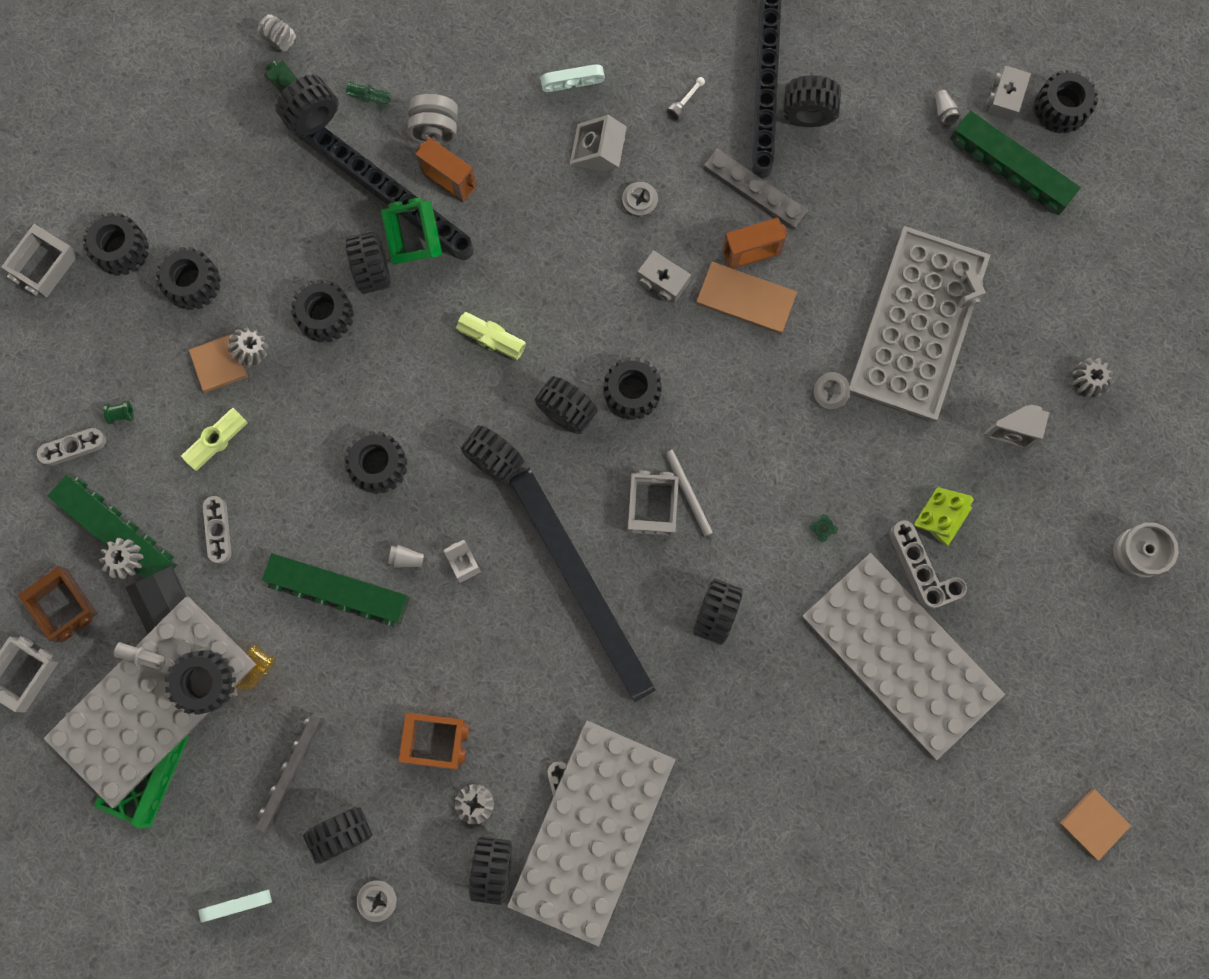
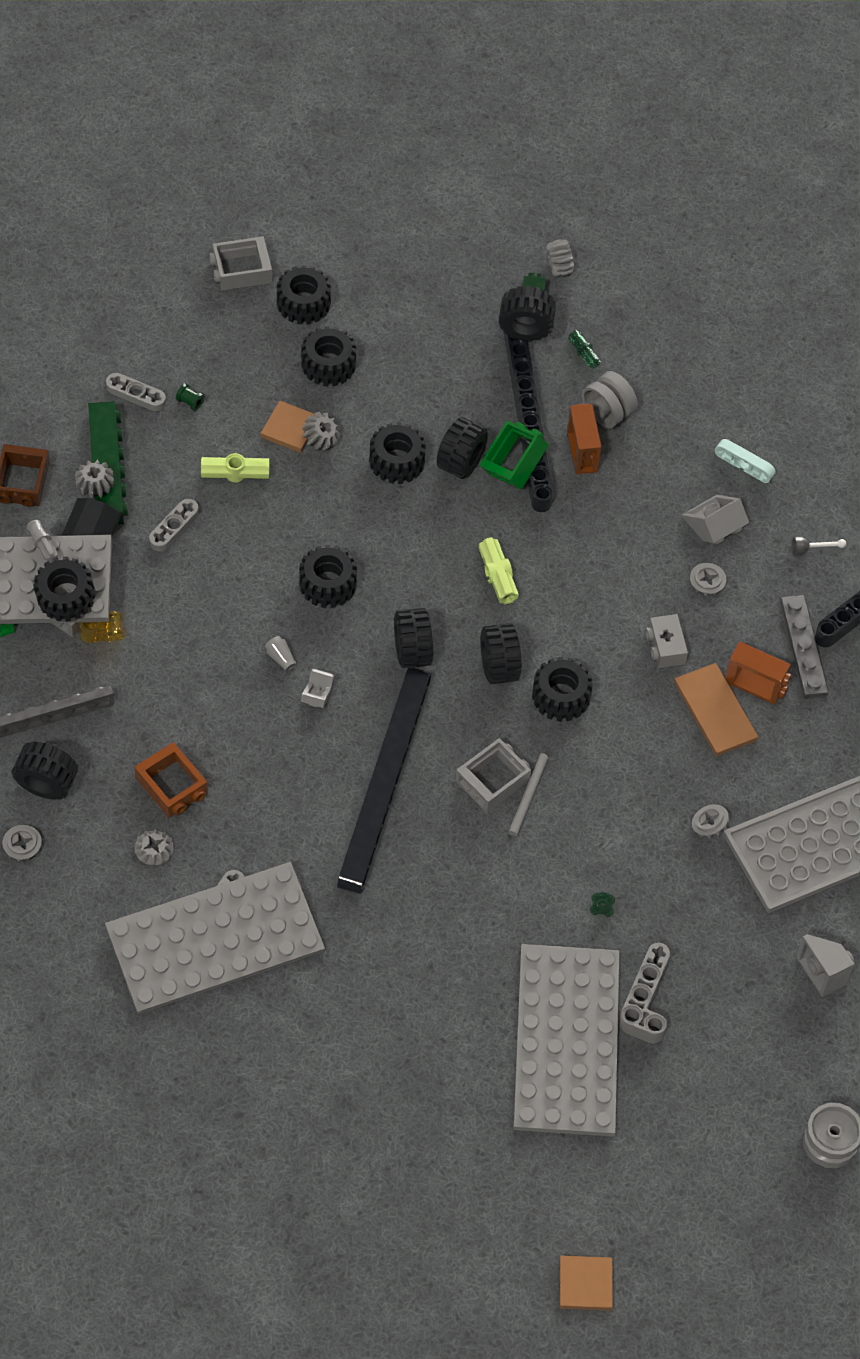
camera: 40 degrees right, 20 degrees down
(336, 589) = (212, 630): dark green brick -> none
(490, 870) = (120, 886): black tyre -> none
(718, 611) = (460, 876): black tyre -> none
(944, 514) = (704, 977): lime bracket -> none

